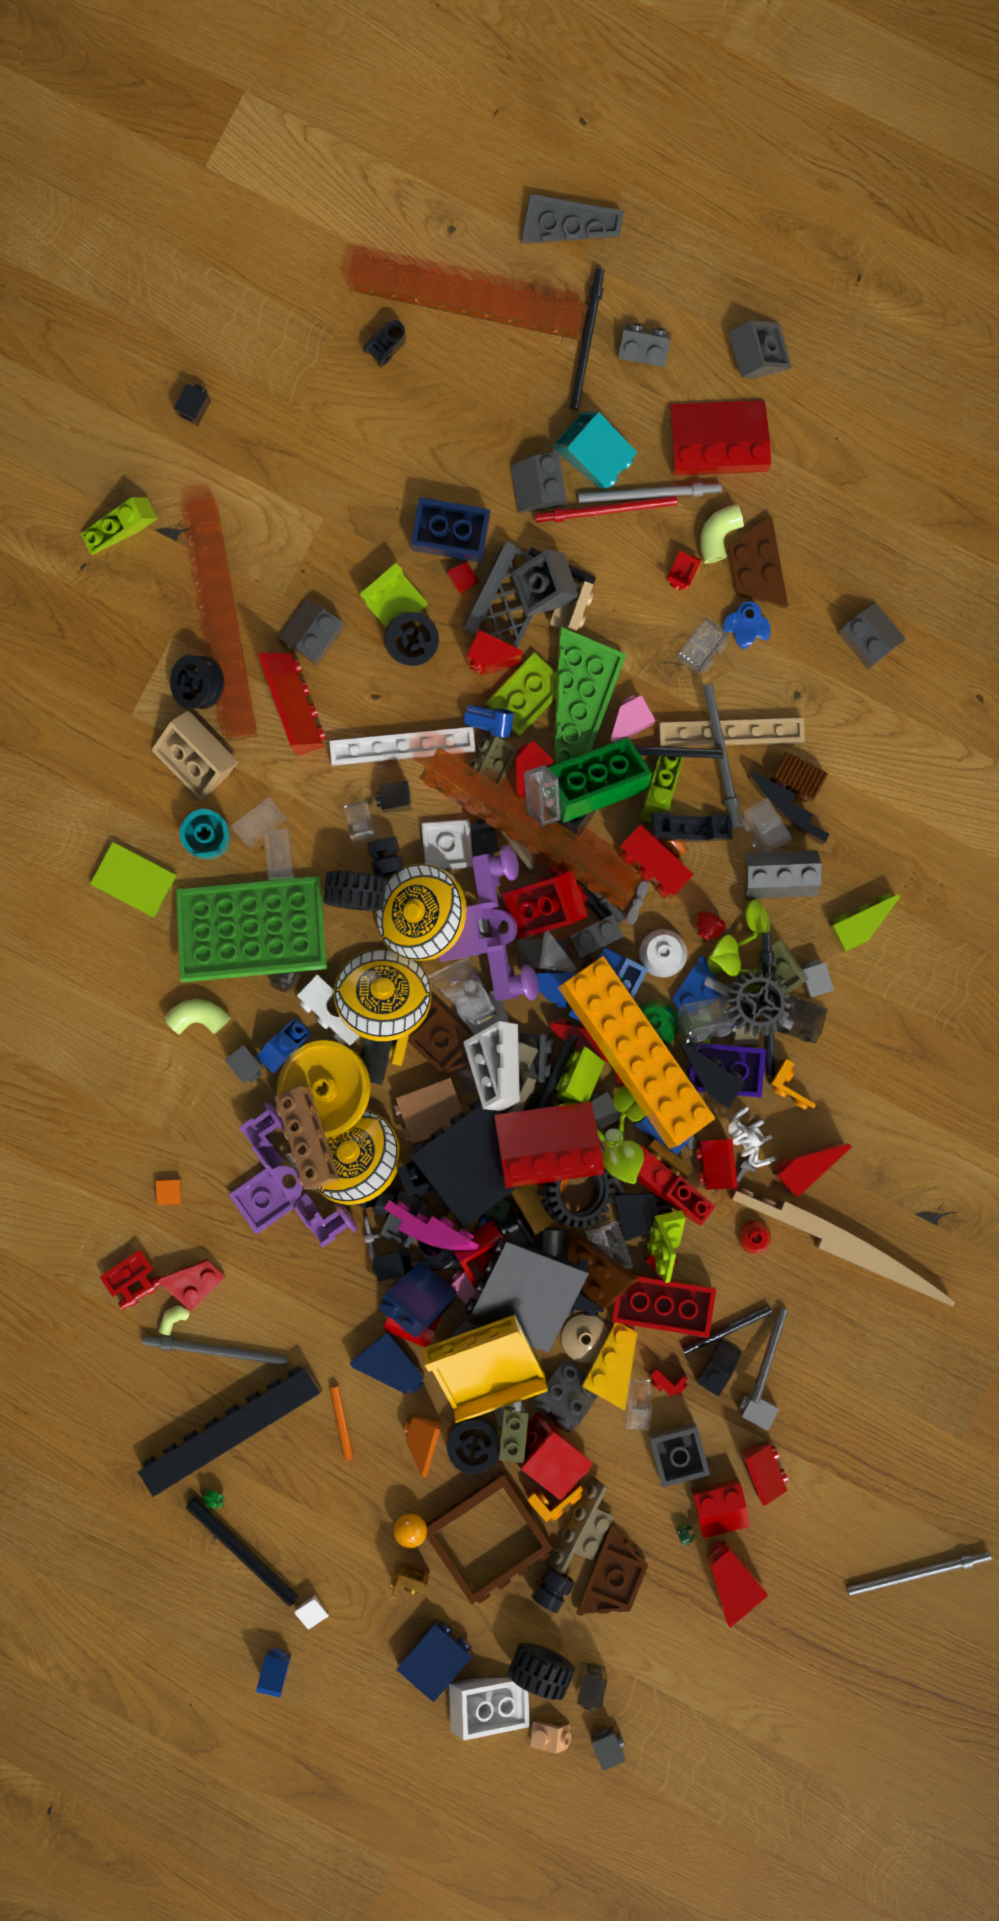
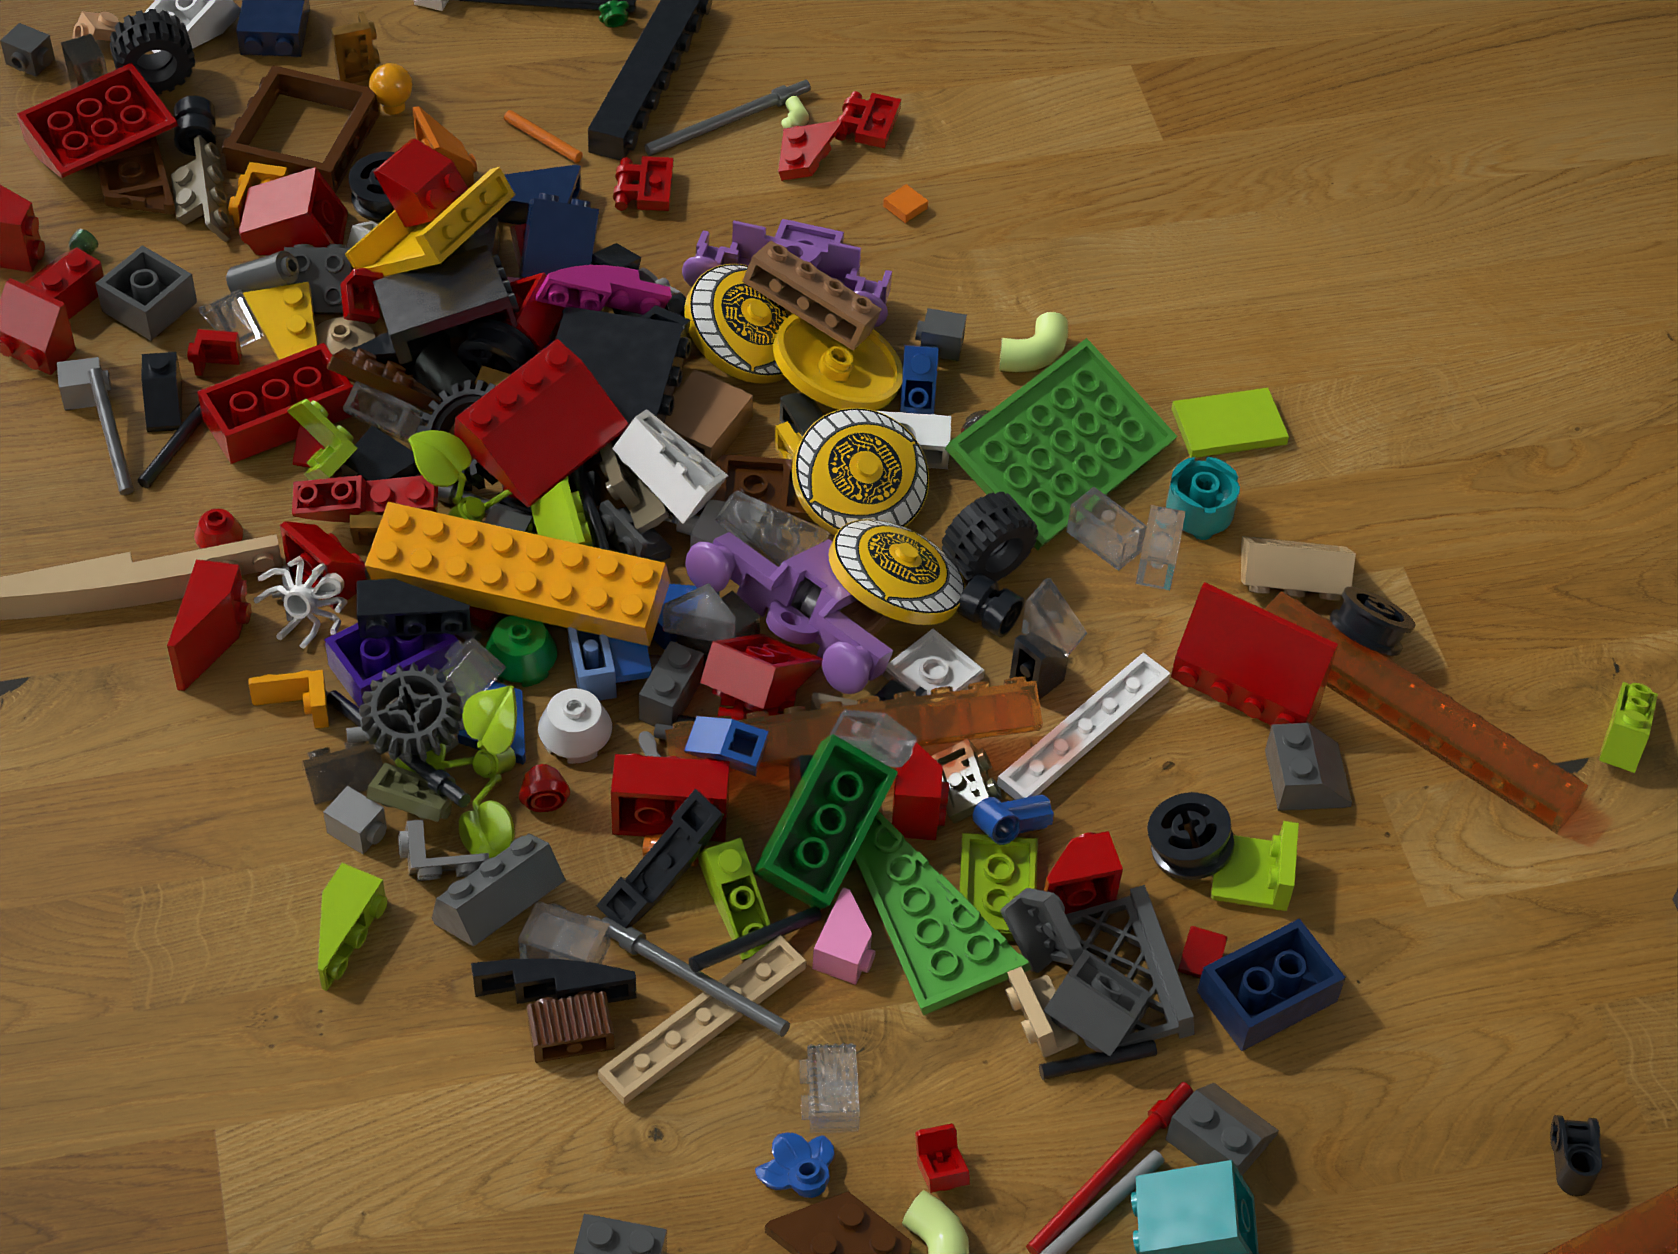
camera: 135 degrees right, 35 degrees down
(308, 1324) = (654, 185): none -> red plate
(463, 1414) = (419, 182): none -> red slope
(513, 1435) = (352, 195): olive bracket -> none
(536, 645) = (1042, 929): none -> dark grey bracket
(557, 1358) = (360, 297): none -> red bracket
(603, 1415) = (264, 273): none -> dark grey brick
(611, 858) = (728, 741): none -> blue slope
(616, 1628) = (94, 121): none -> red slope
(796, 914) = (413, 848): none -> light grey bracket

